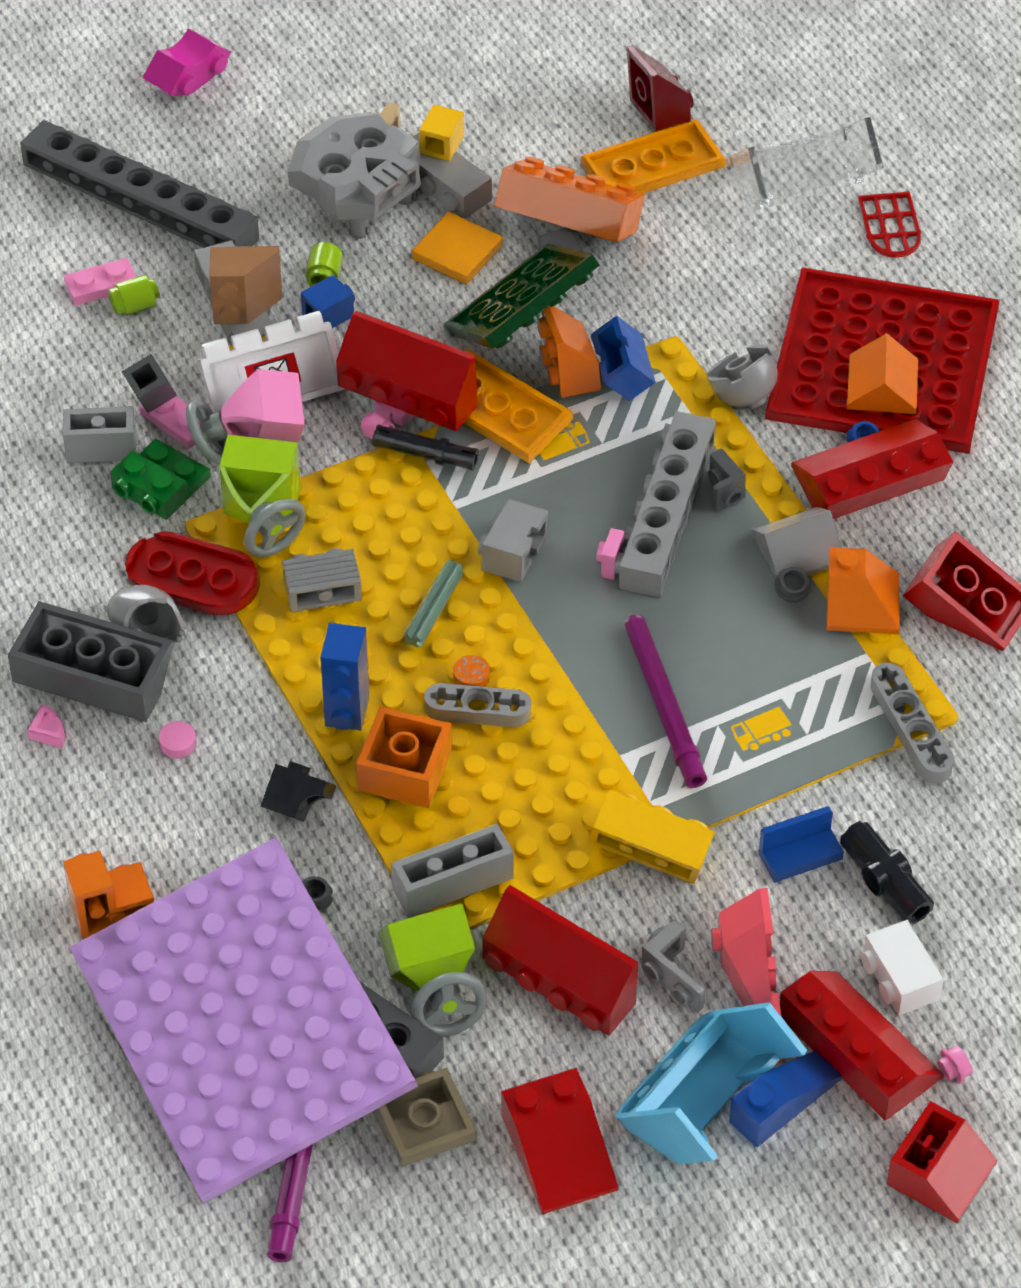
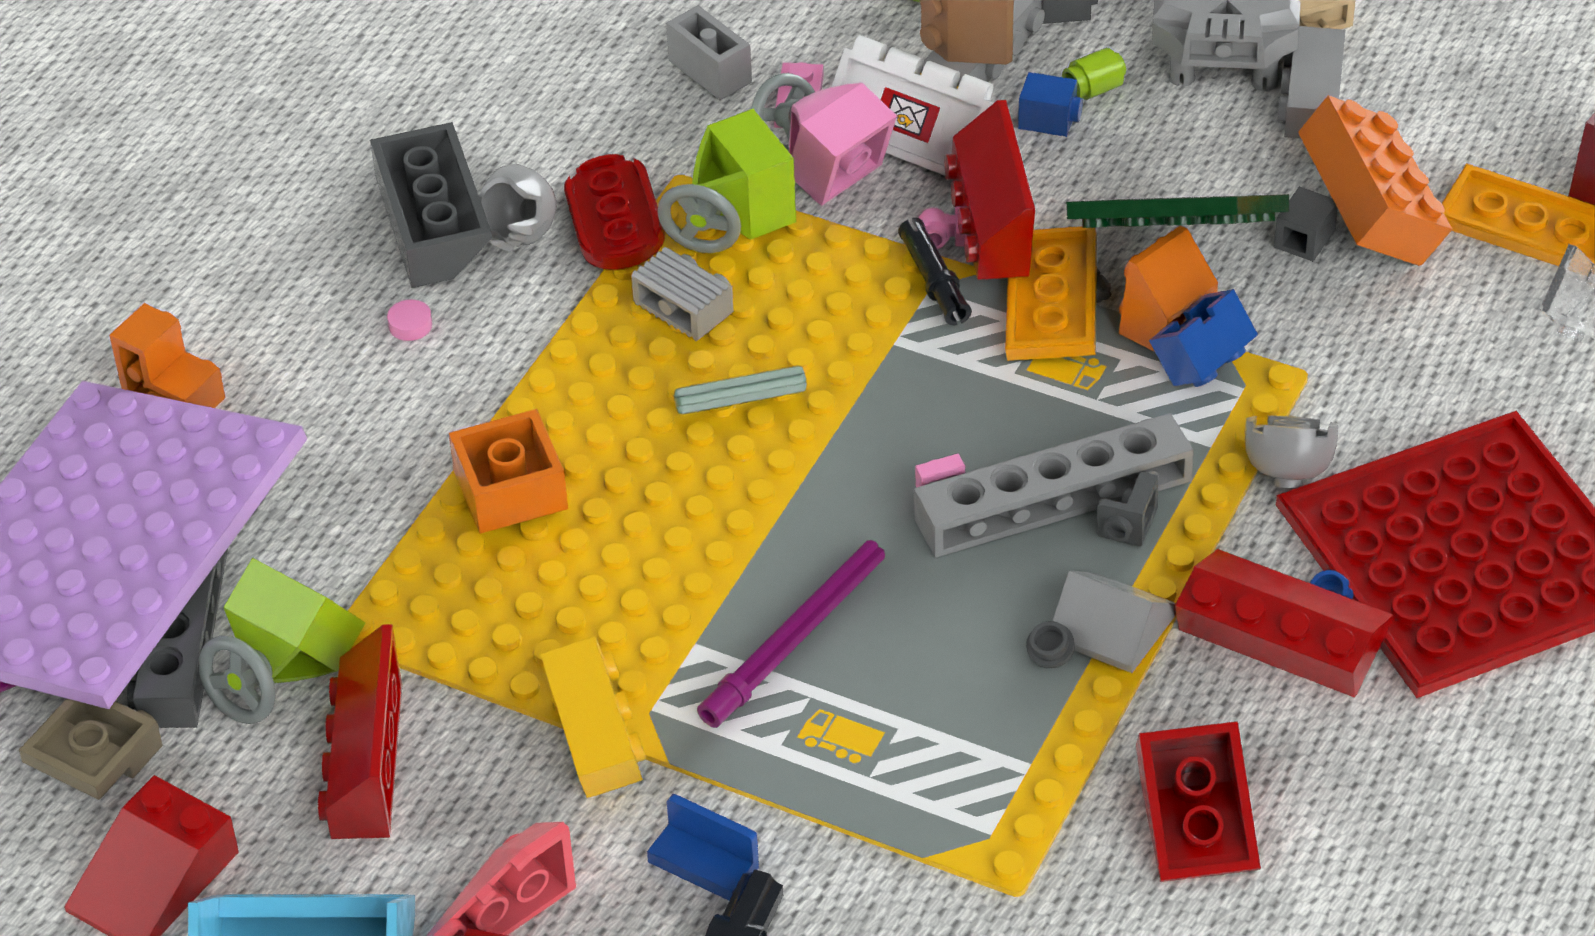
camera: 55 degrees right, 5 degrees down
(47, 727) = (343, 229): bright pink tile -> none
(149, 383) = (789, 38): dark grey brick -> none
(158, 478) = (690, 111): green plate -> none
(294, 791) = (408, 425): black brick -> none
(320, 887) = (306, 516): dark grey plate -> none
(345, 676) = (545, 360): blue brick -> none
(441, 132) = (1341, 36): yellow brick -> none
(452, 870) = (398, 585): light grey brick -> none
(457, 247) = (1236, 151): light orange tile -> none
(471, 671) = (679, 467): orange tile -> none
(487, 716) = (643, 511): light grey beam -> none
(512, 537) = (878, 398): light grey brick -> none
(657, 965) = (454, 812): light grey bracket -> none
(861, 593) = (1091, 703): orange slope -> none
(883, 378) = (1425, 560): orange slope -> none
(915, 721) = (956, 847): light grey beam -> none

